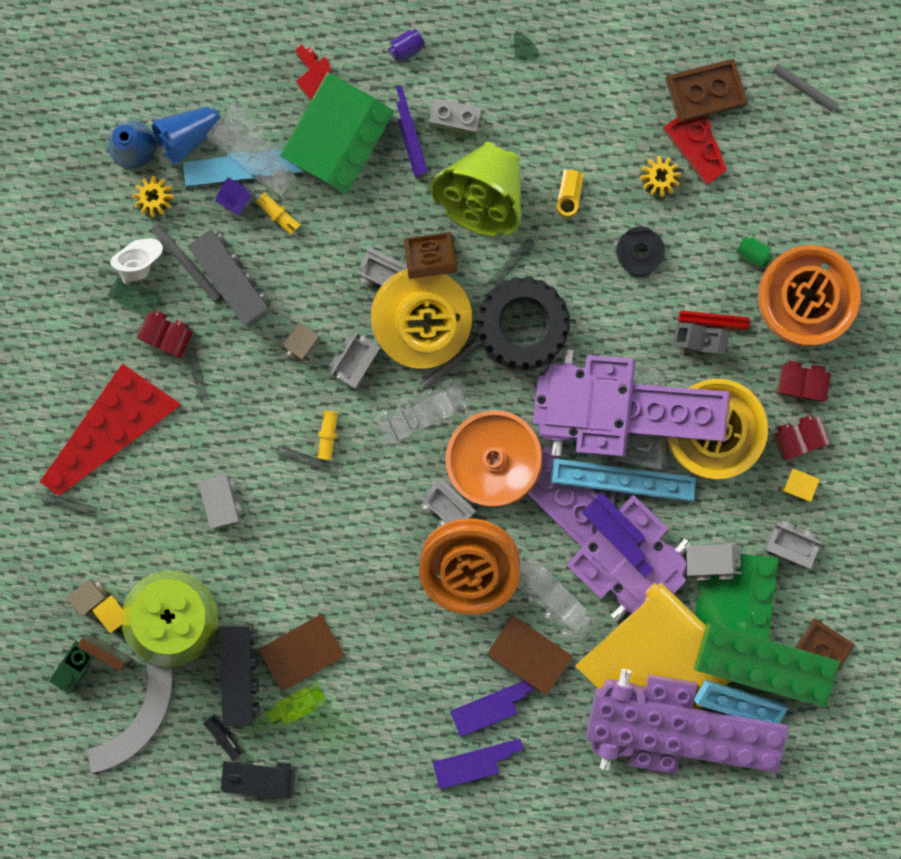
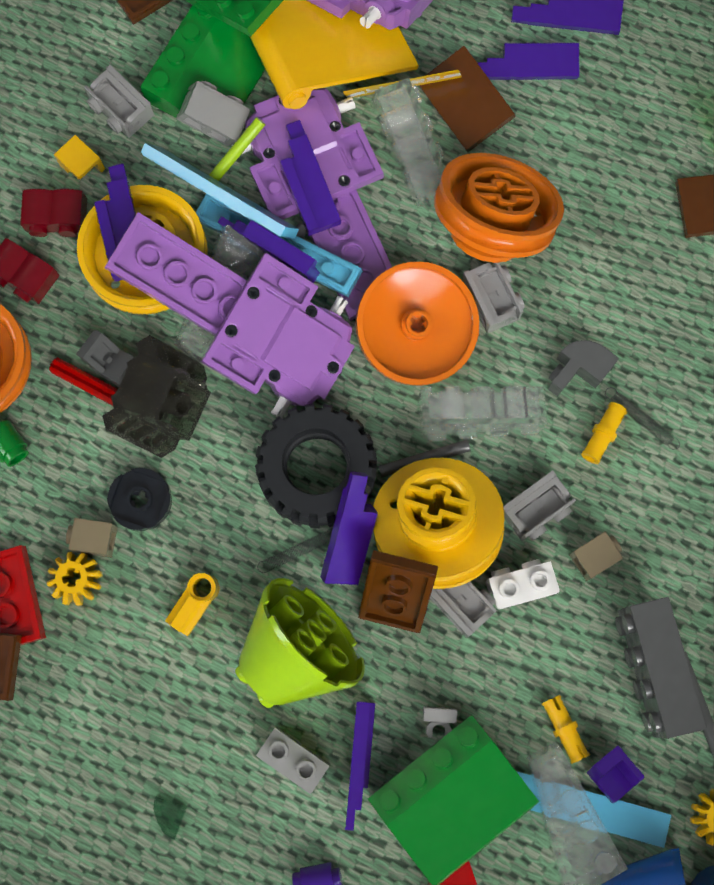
camera: 160 degrees left, 10 degrees down
(344, 298) = (523, 585): none -> white bracket
(364, 483) = (585, 359): none -> dark grey brick
(368, 186) = (439, 716): none -> light grey tile
(479, 281) = (350, 534): none -> dark purple piece
(581, 643) = (414, 81): none -> yellow sticker
(623, 469) = (276, 247): none -> dark purple piece
(657, 326) = (158, 398): none -> clear smoke slope
(661, 209) = (91, 537): none -> dark tan brick
(682, 500) = (219, 191): none -> medium azure tile
(685, 535) = (237, 149): none -> lime bar
(742, 442) = (116, 213): none -> dark purple piece

